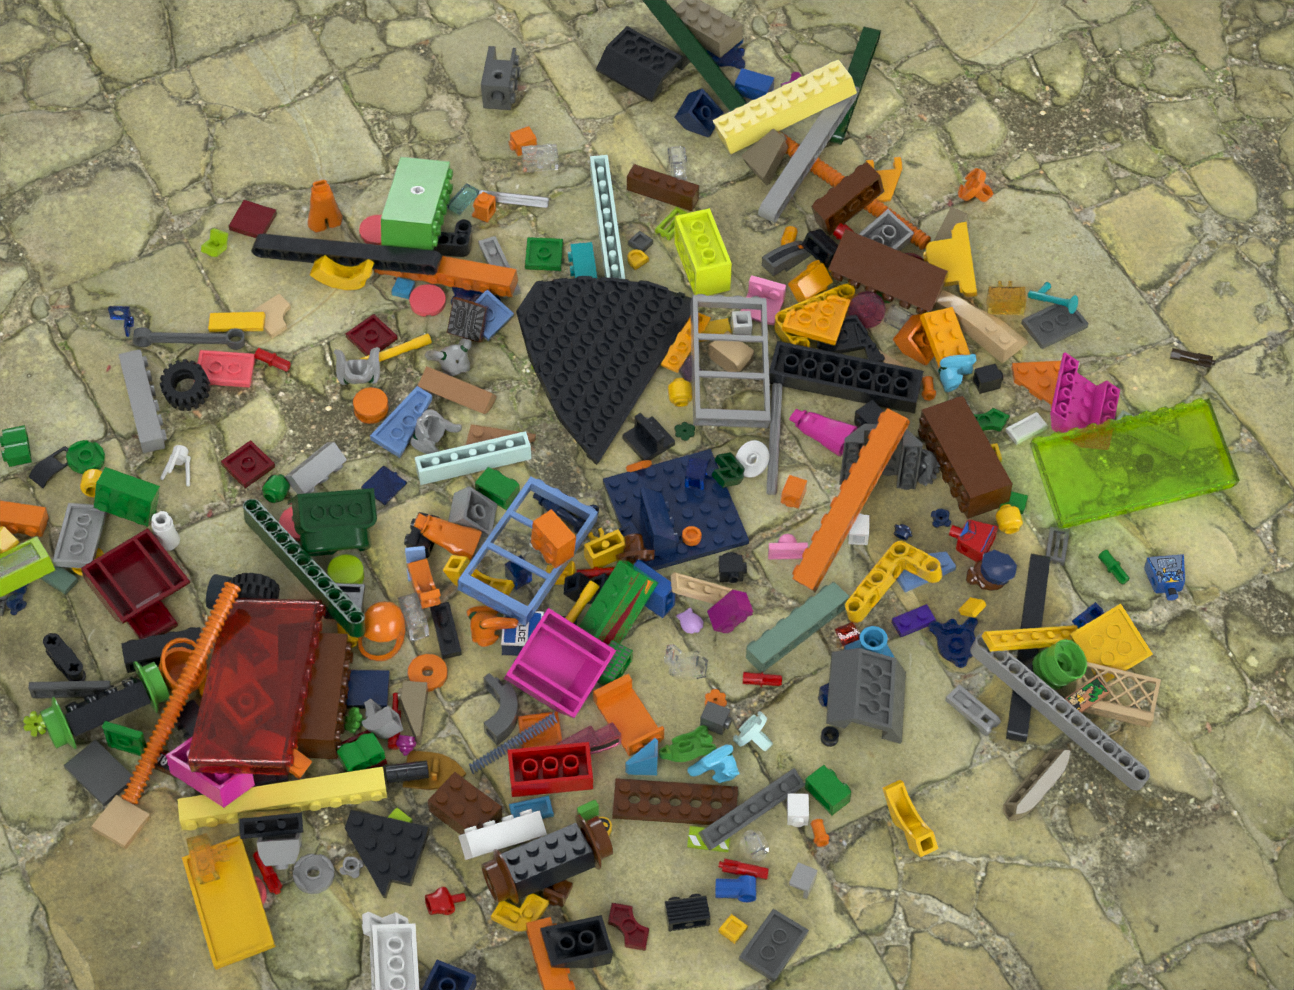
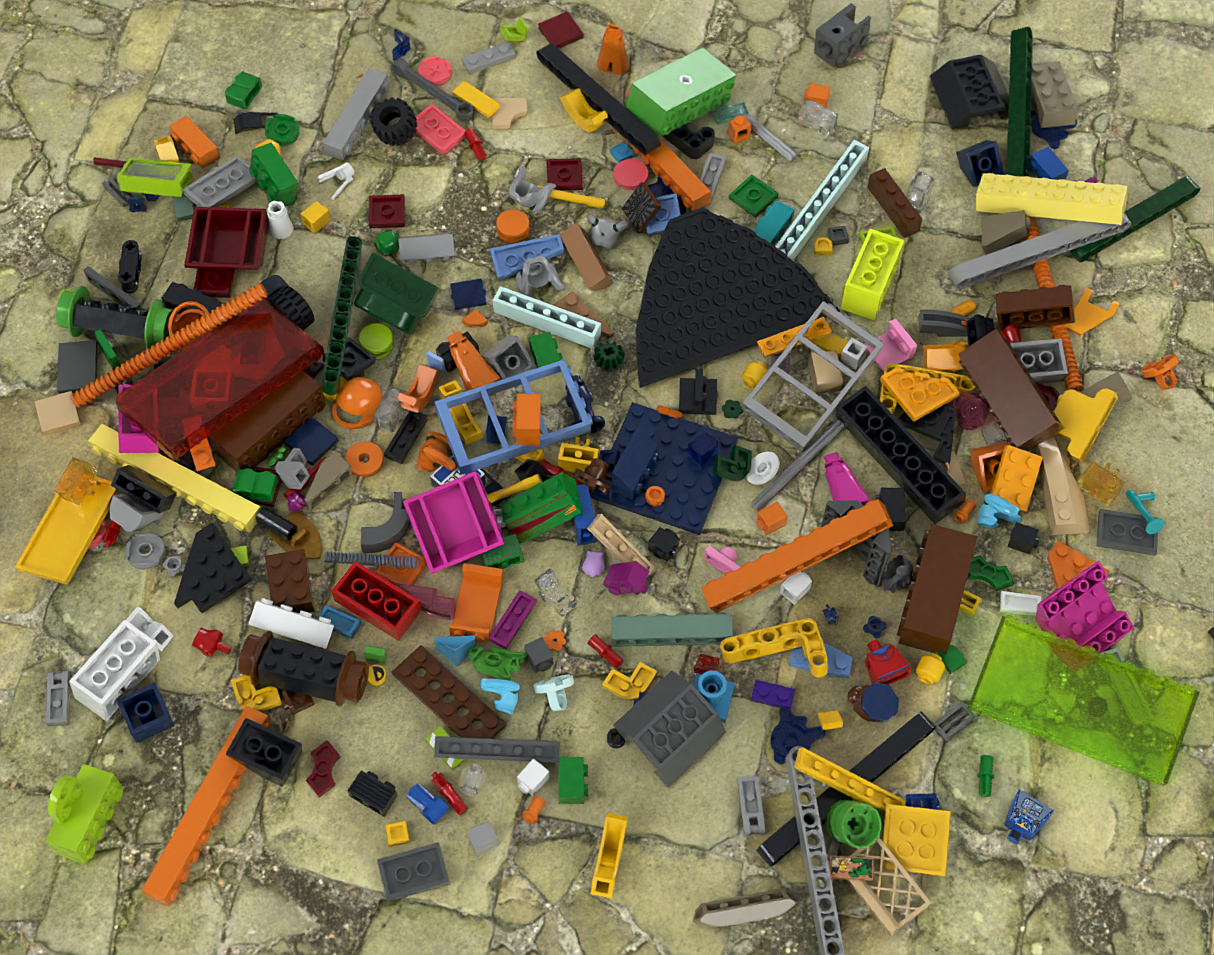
camera: 40 degrees right, 5 degrees up
(174, 320) = (435, 70): none -> coral tile
(191, 509) = (315, 217): none -> yellow brick
(211, 281) = (488, 58): none -> light grey plate
(411, 500) = (475, 319): none -> orange tile
(550, 455) = (609, 356): none -> dark green gear
(669, 707) = (512, 619): none -> magenta plate
(805, 691) = (627, 687): none -> yellow plate

